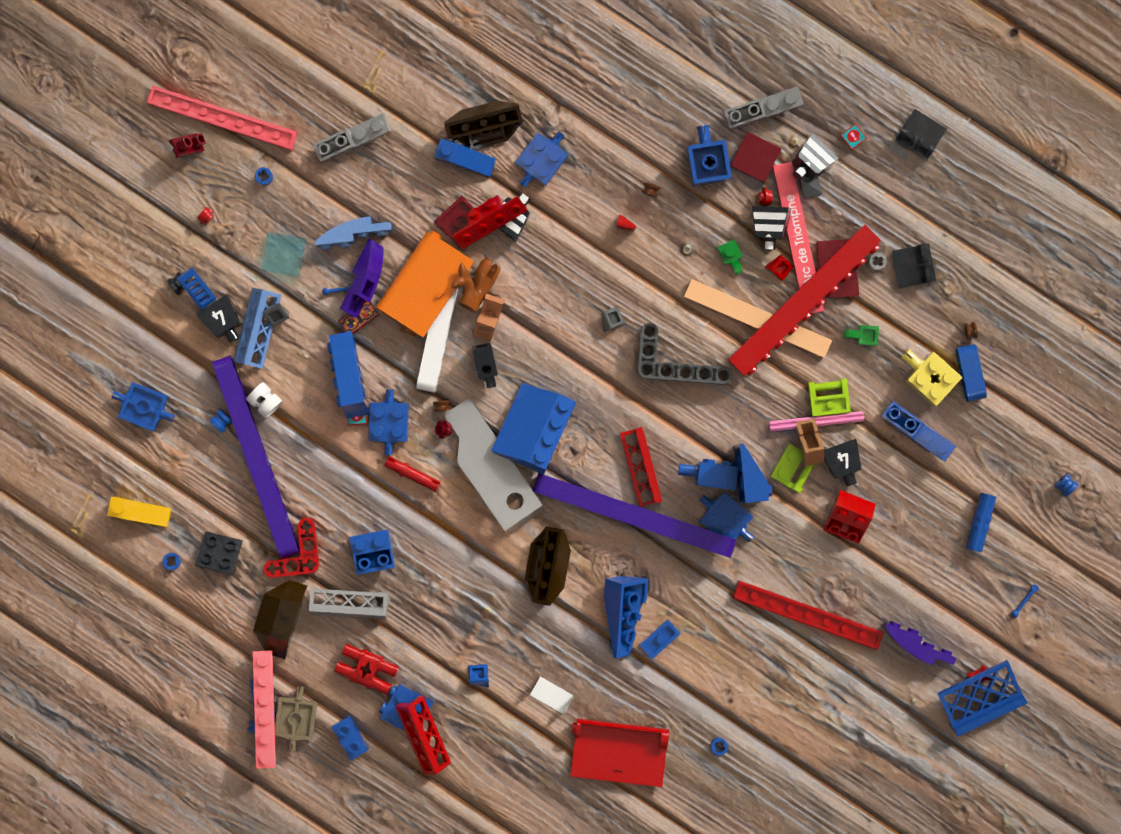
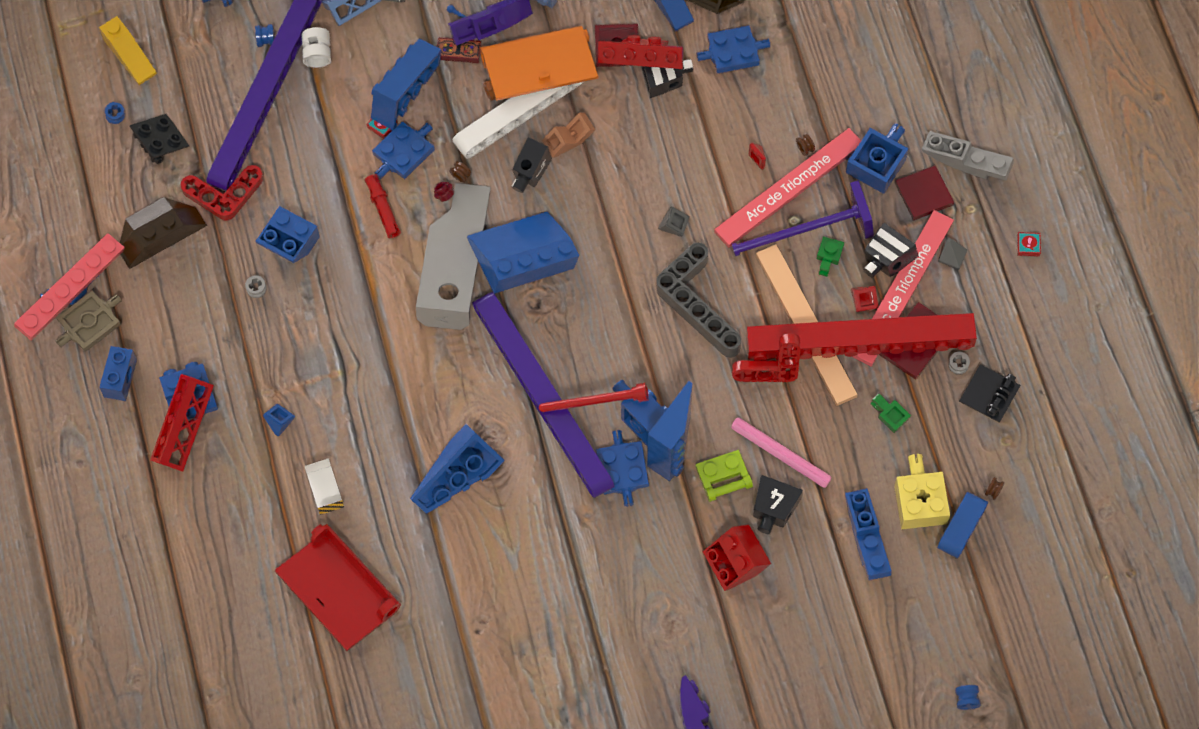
camera: 45 degrees right, 20 degrees down
(348, 611) = (219, 270): light grey fence -> none
(356, 674) = (177, 328): red pin -> none
(475, 292) = (567, 106): dark orange piece -> none
(547, 565) = (428, 373): dark brown wedge -> none
(646, 460) = (592, 364): red fence -> none
(659, 639) = (466, 520): blue plate -> none
(664, 229) = (787, 188): none -> coral tile
(704, 471) = (639, 393): none -> red piece
(713, 748) = (425, 658): blue bush -> none
(728, 212) = (859, 210): none -> dark purple tile
(765, 197) = (904, 228): red plate -> none
(773, 360) = (751, 370): none -> red beam
(808, 615) = (621, 615): red tile -> none
(810, 442) = (757, 457): medium nougat brick -> none
(813, 159) = (974, 230): torso -> none
(831, 403) = (806, 445): lime plate -> none
(920, 134) = (1092, 289): black hinge -> none
(981, 522) = (856, 664): blue axle -> none

